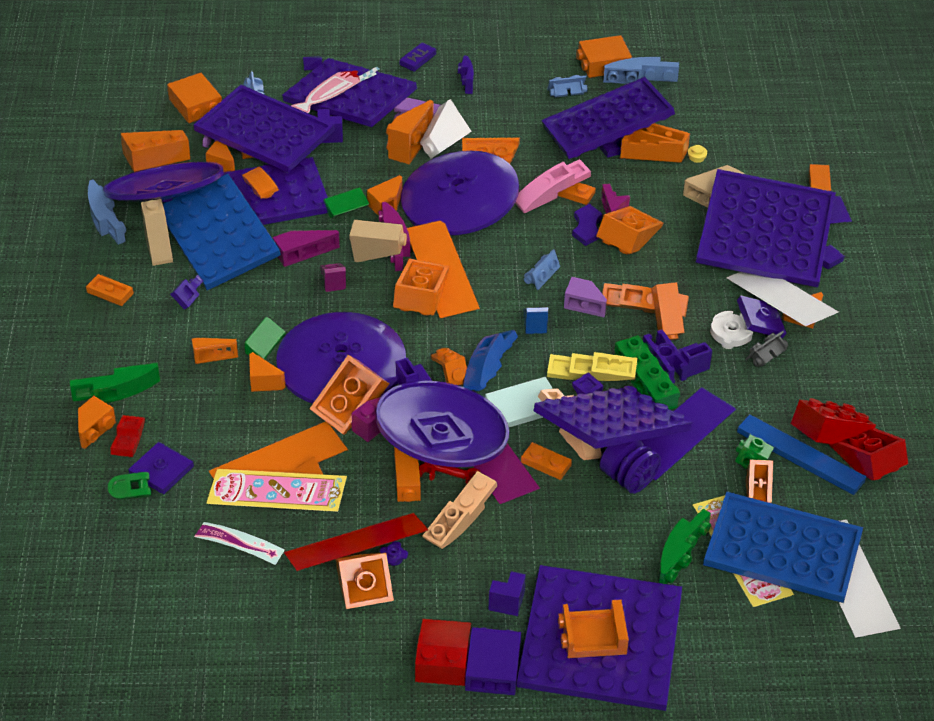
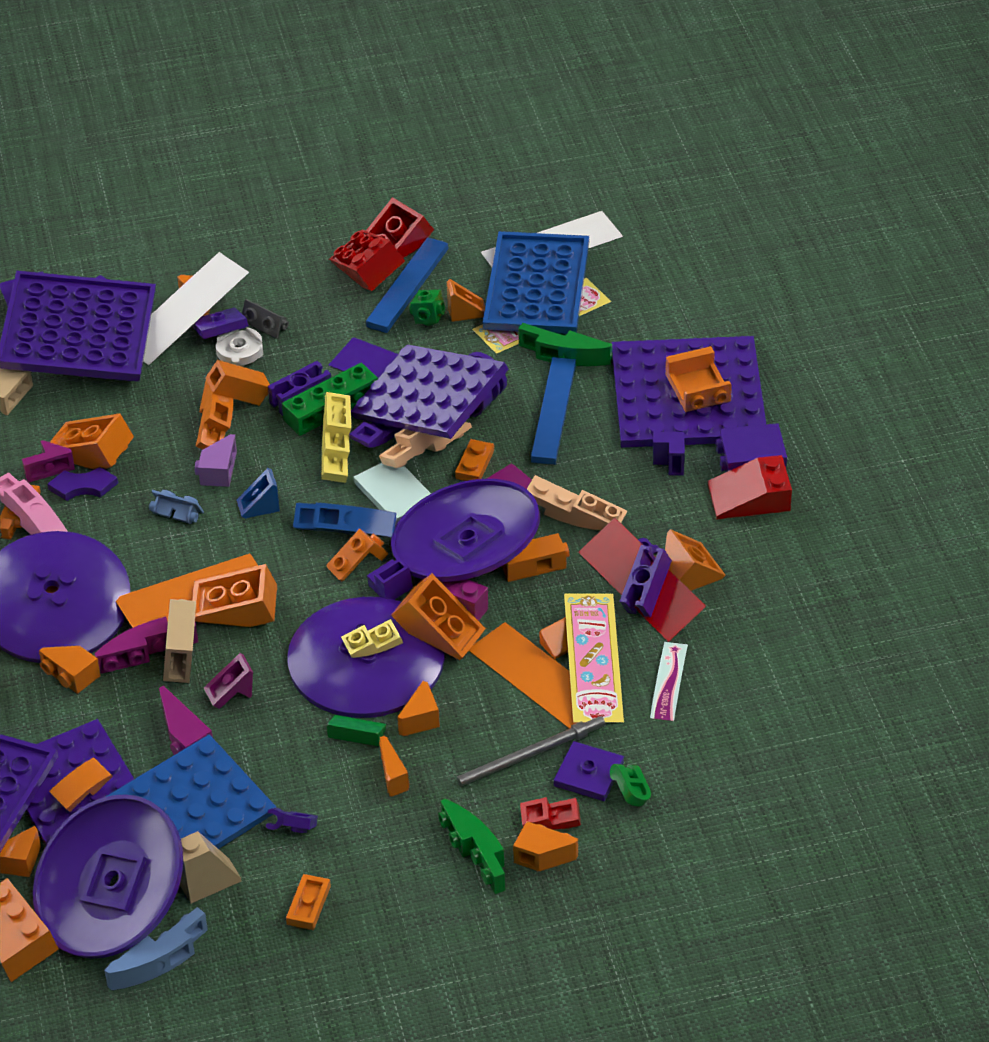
camera: 100 degrees left, 0 degrees up
(203, 466) = (576, 732): none -> flat silver bar
(334, 344) = (370, 642): none -> light yellow slope
(341, 533) = (650, 589): none -> dark purple piece
(345, 202) = (92, 702): green slope -> none
(598, 527) = (553, 411): none -> blue tile
(698, 357) = (295, 359): dark purple piece -> none

